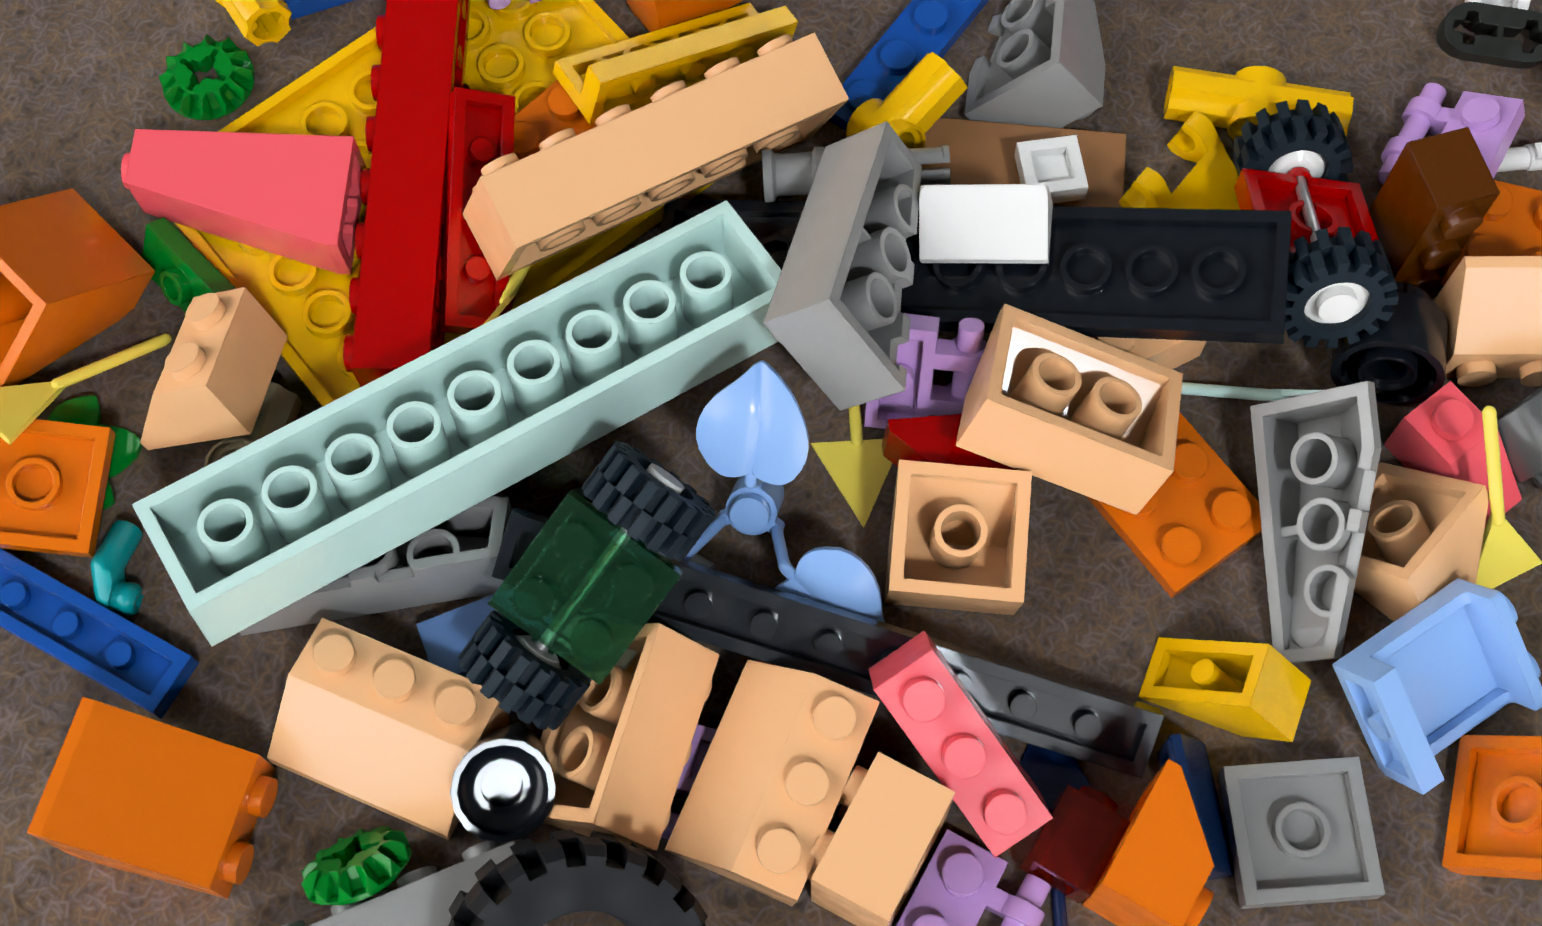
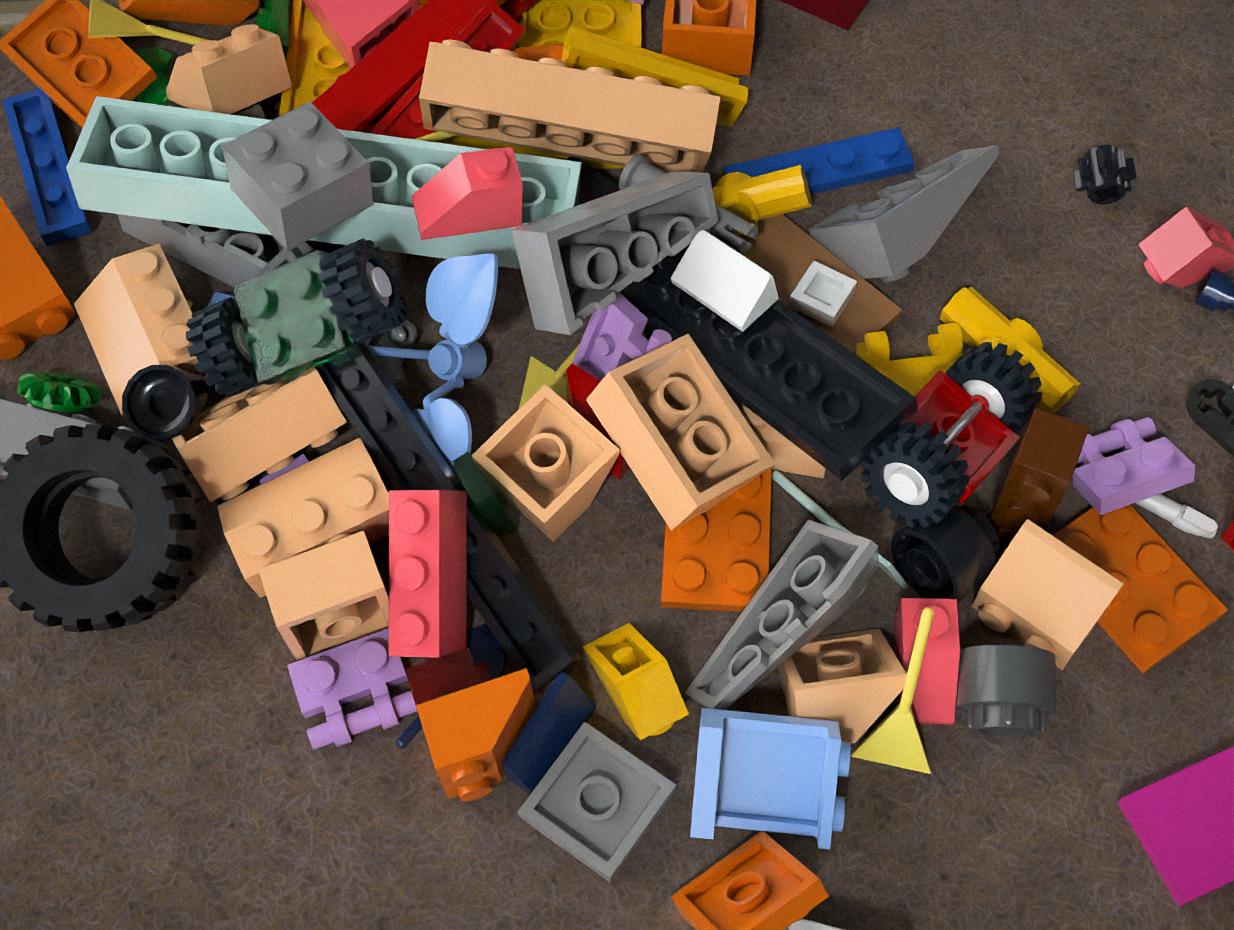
camera: 40 degrees right, 5 degrees down
(477, 427) = (298, 175): none -> light grey brick
(674, 316) = (471, 195): none -> coral slope
(937, 618) = (483, 495): none -> clear green tile

